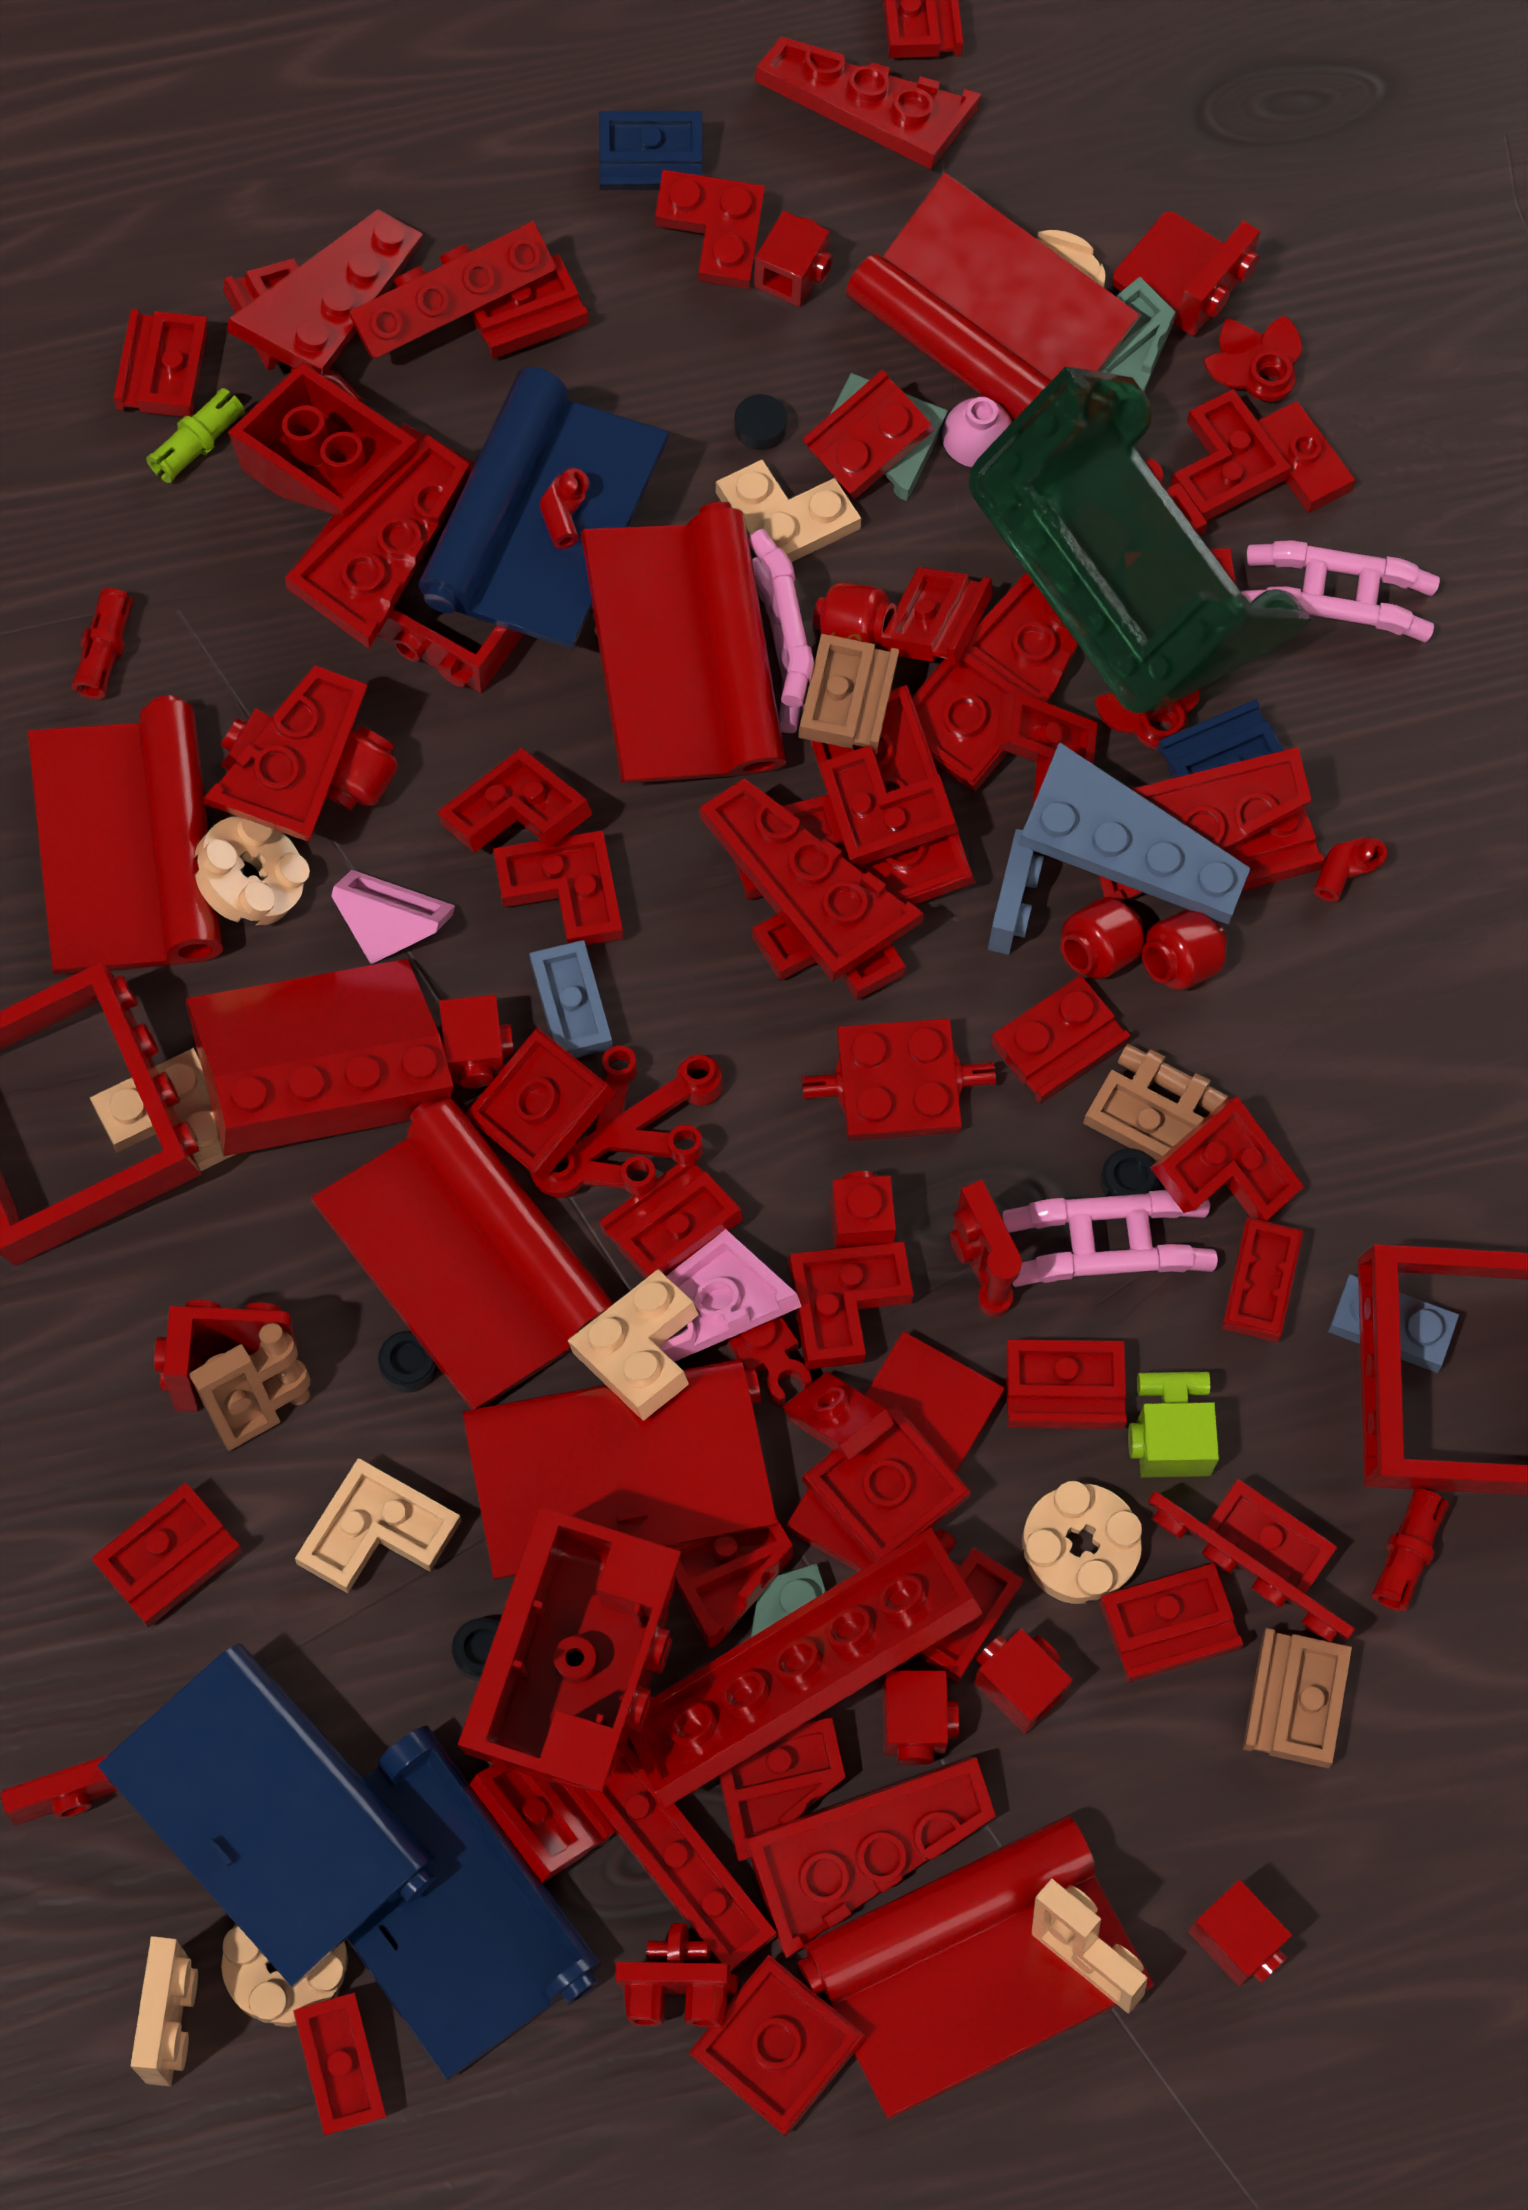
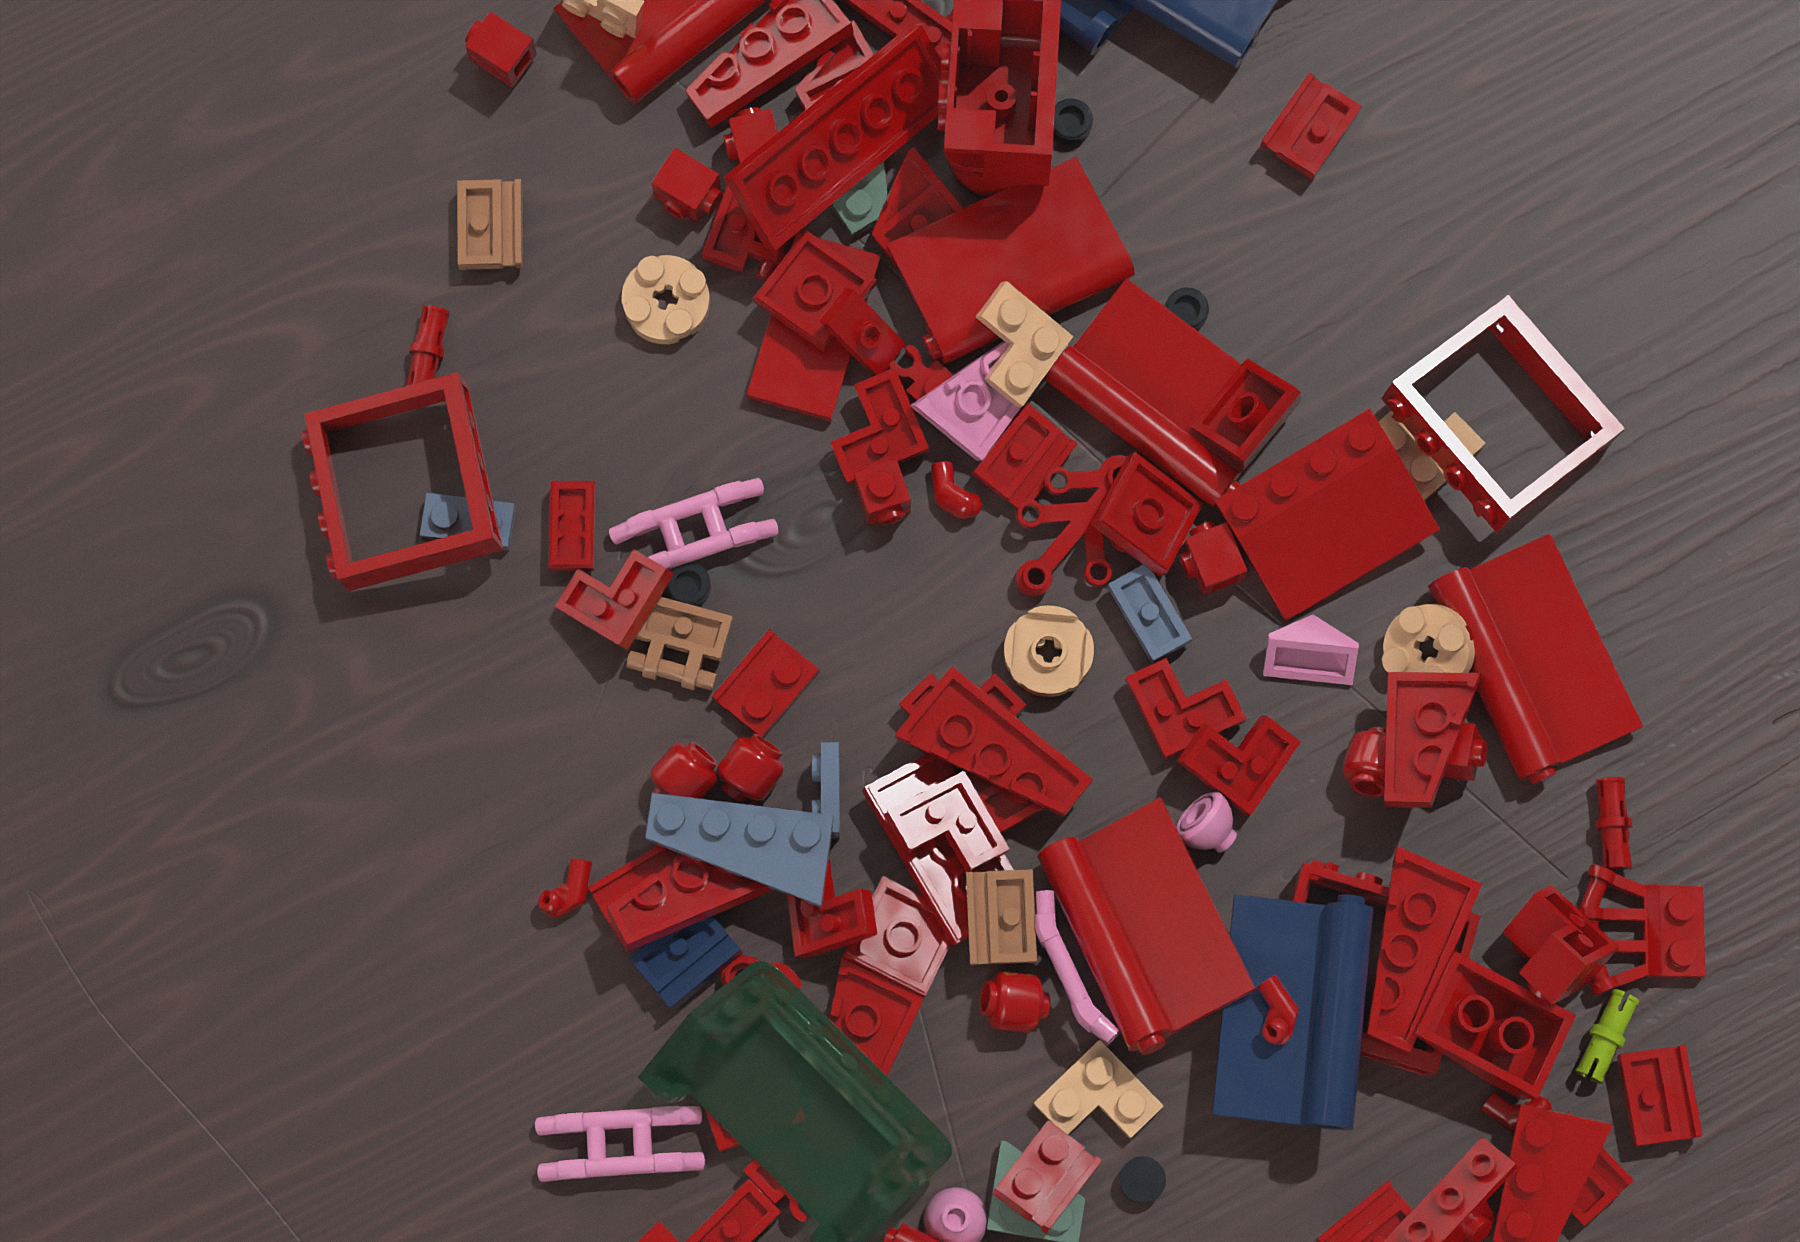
camera: 170 degrees right, 10 degrees up
(85, 515) = (1669, 924): none -> red plate
(208, 1330) = (1326, 276): red bracket -> none
(211, 506) = (1561, 945): none -> red brick
(234, 1388) = (1299, 232): nougat plate -> none
(373, 1511) = (1173, 192): light nougat plate -> none
(375, 1185) = (1247, 412): none -> red slope
(579, 750) = (1207, 823): none -> bright pink brick
(712, 1018) = (1069, 636): none -> light nougat plate
(777, 1200) = (950, 496): none -> red arm
(898, 1080) = (882, 616): red plate -> none
(937, 615) = (948, 1018): red plate -> none
(985, 1243) = (788, 486): red plate -> none
(1065, 1384) = (702, 408): red plate -> none
(1170, 1622) = (590, 254): red plate -> none
(1174, 1435) = (612, 389): lime brick -> none
(1265, 1544) = (535, 319): red bracket -> none

